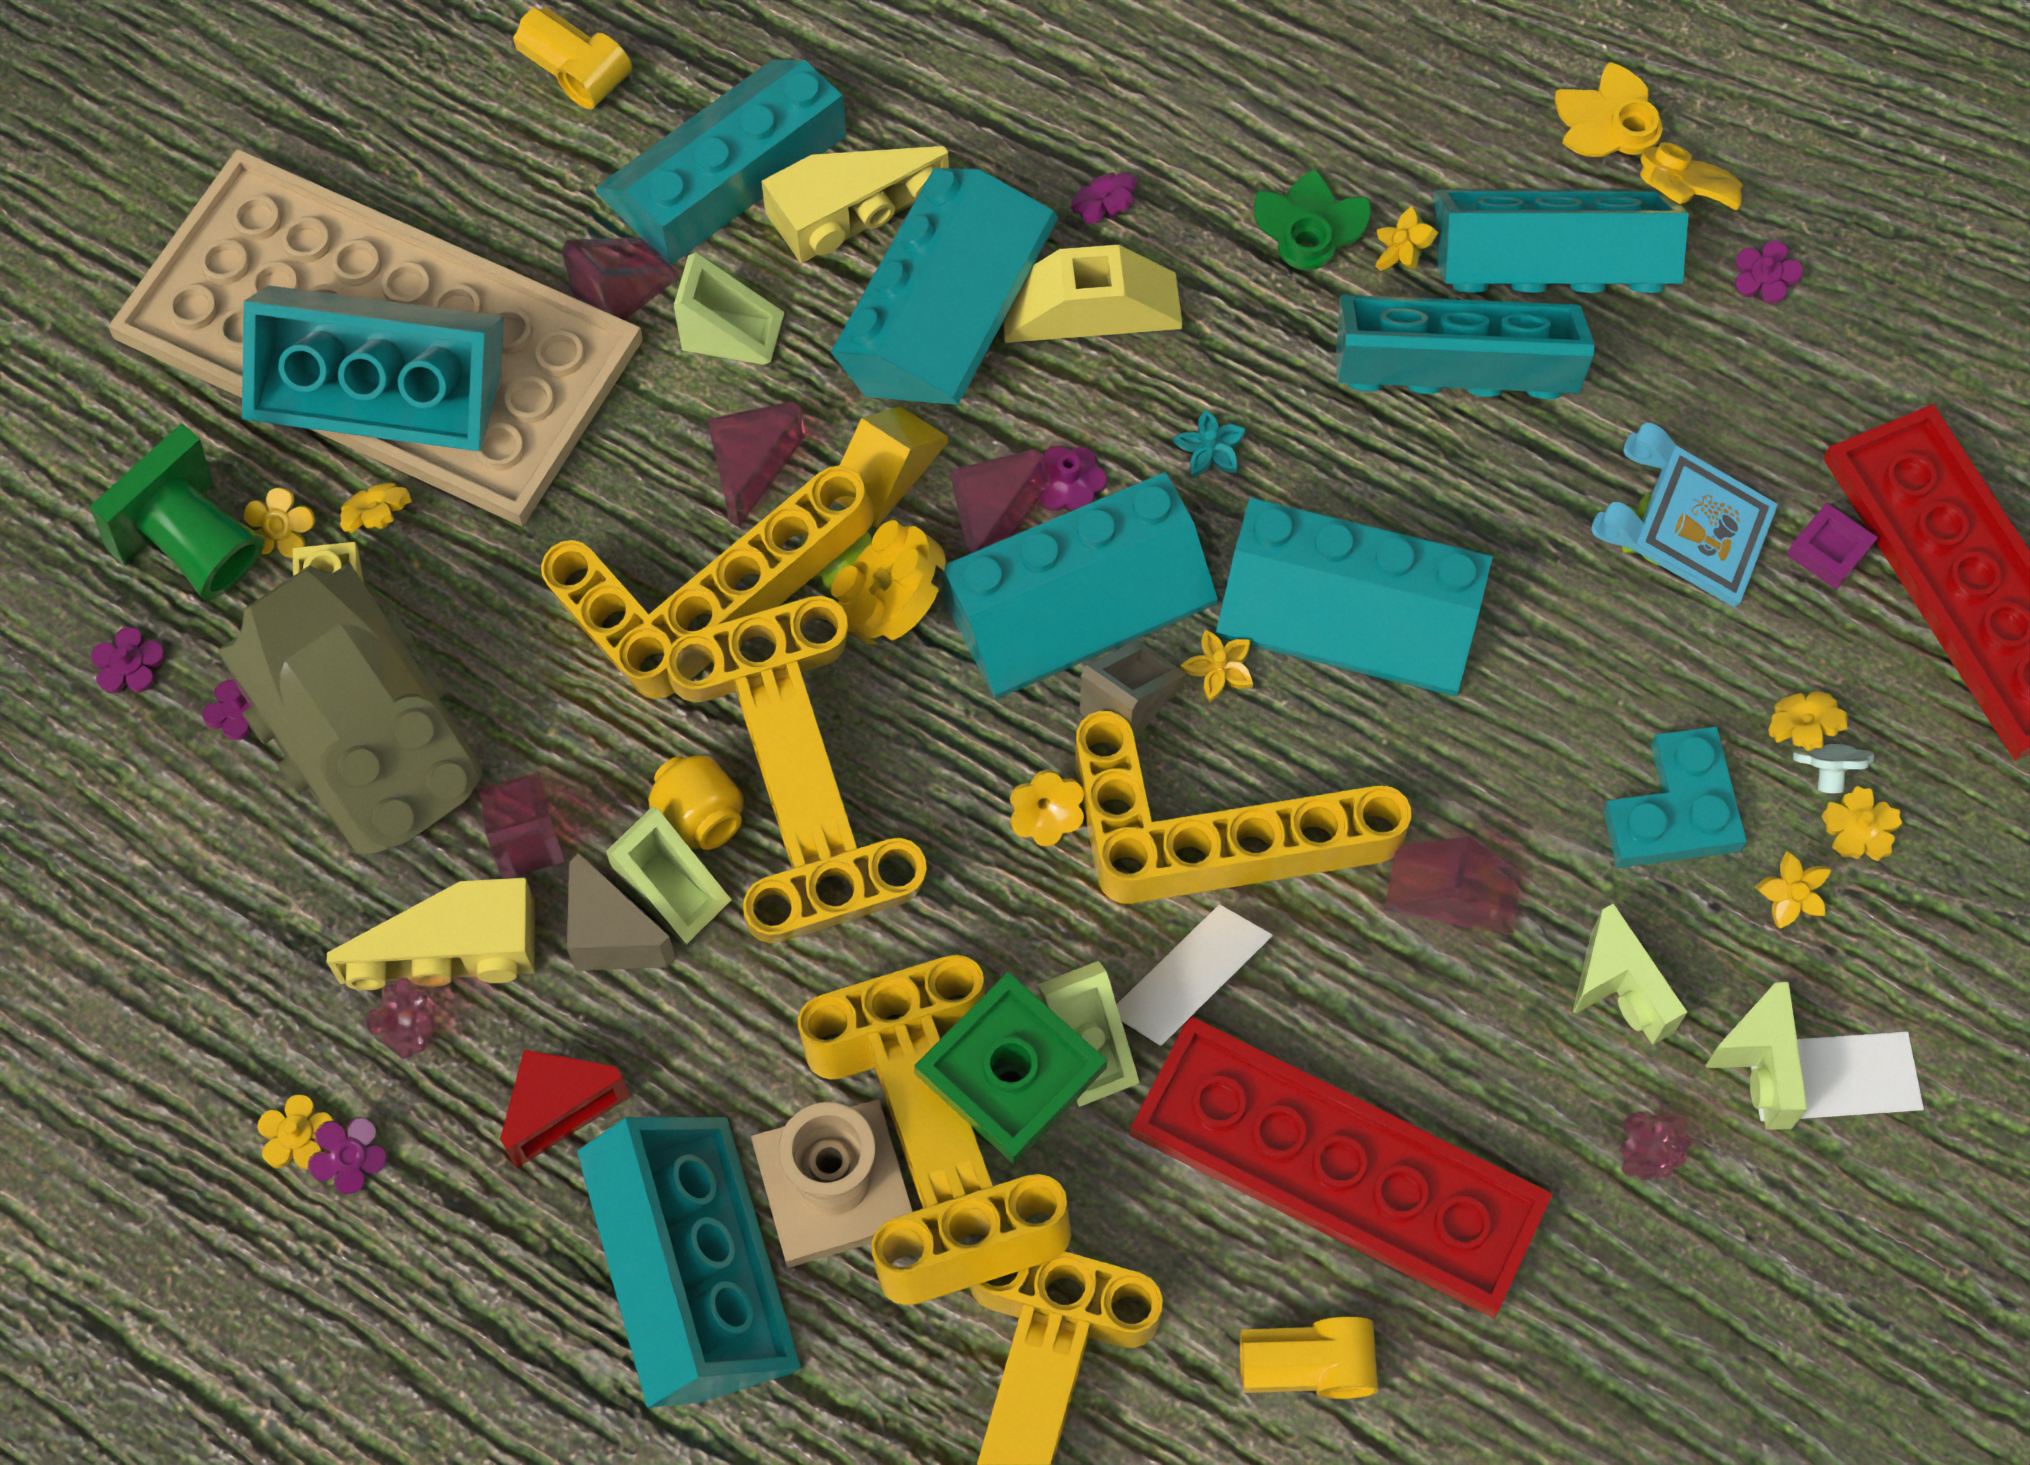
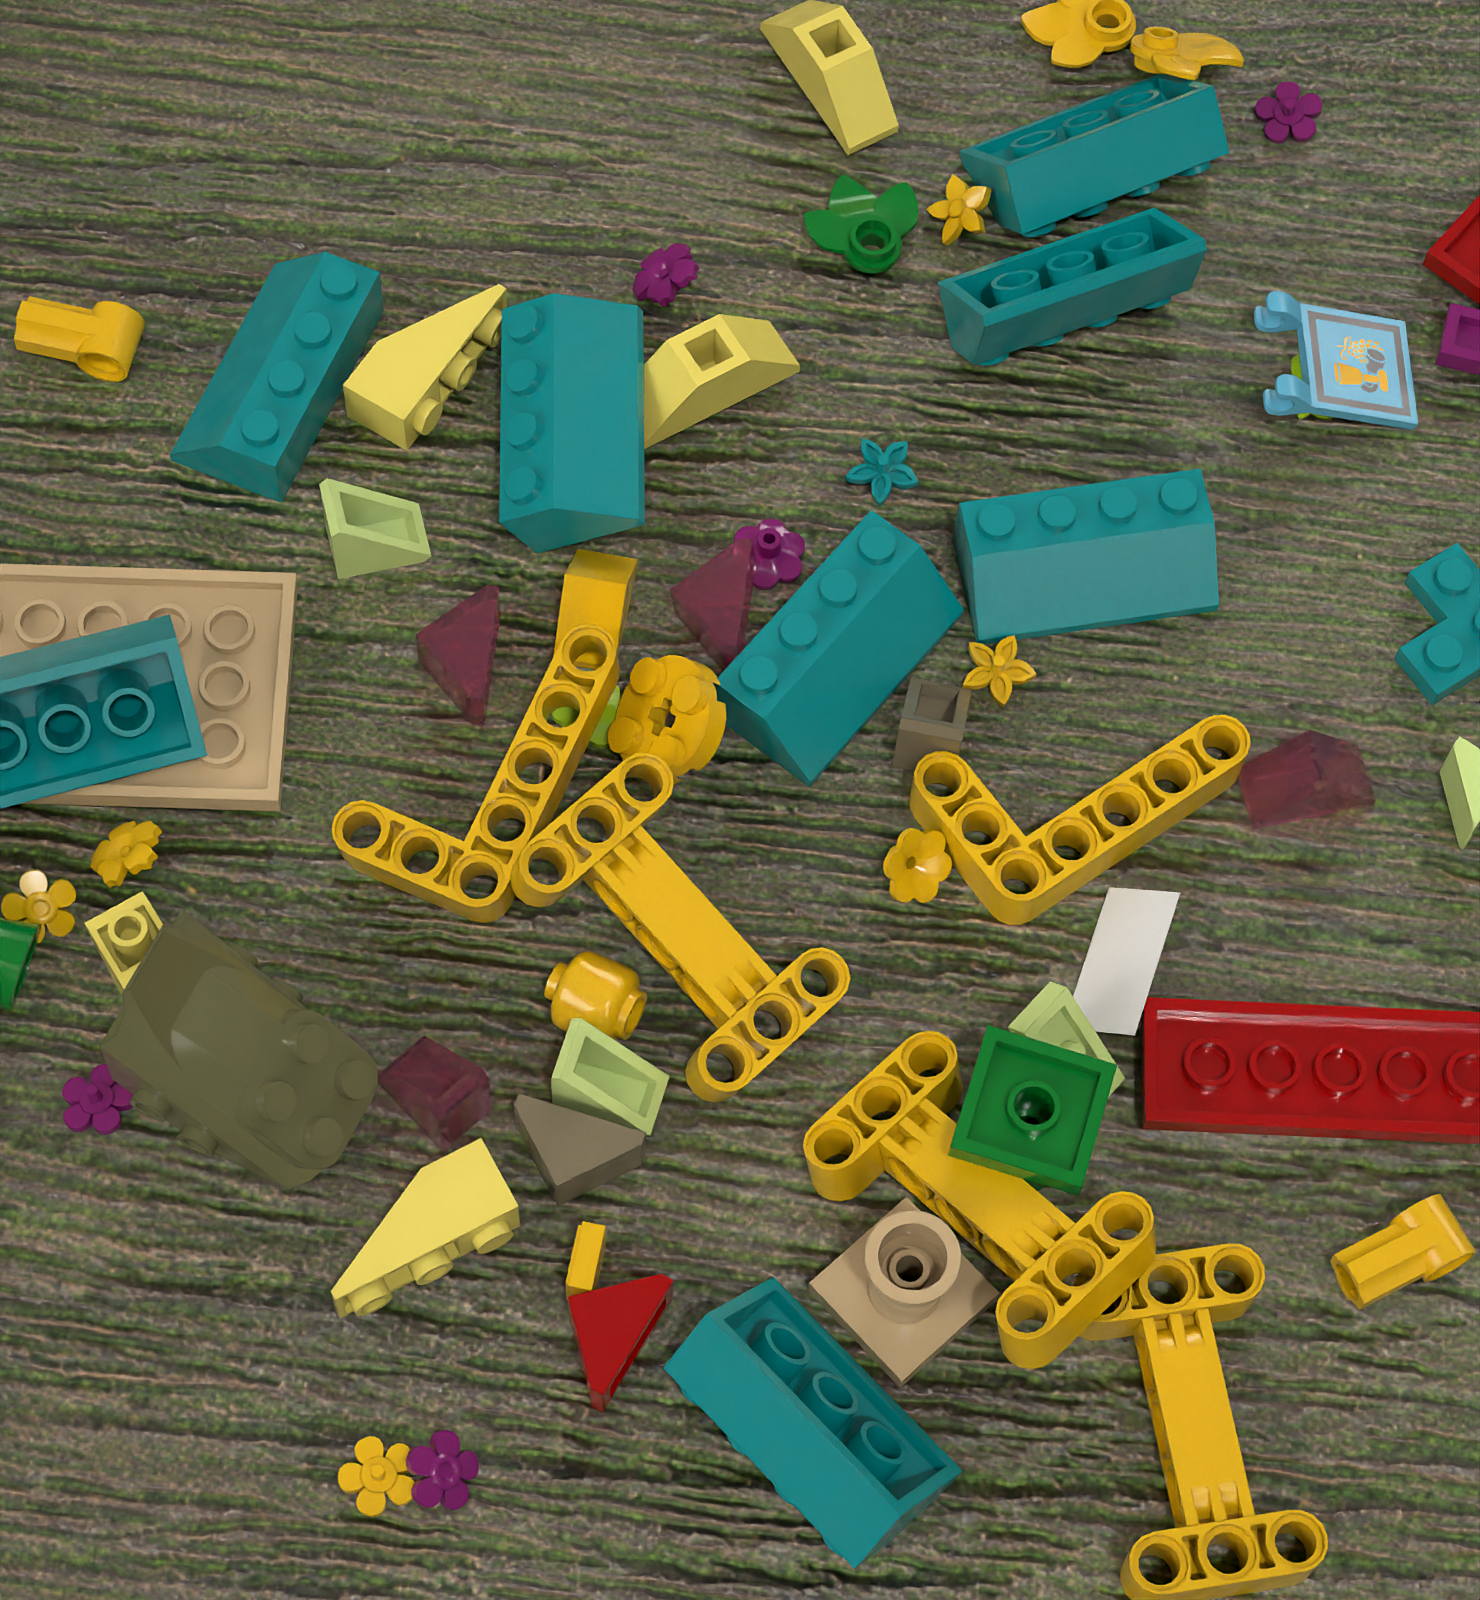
camera: 30 degrees left, 0 degrees up
(403, 1018) = (428, 1320): clear pink plant -> none
(565, 1026) = (586, 1259): none -> yellow tile
(616, 273) = (241, 531): clear pink slope -> none
(1351, 77) = (834, 71): none -> light yellow slope

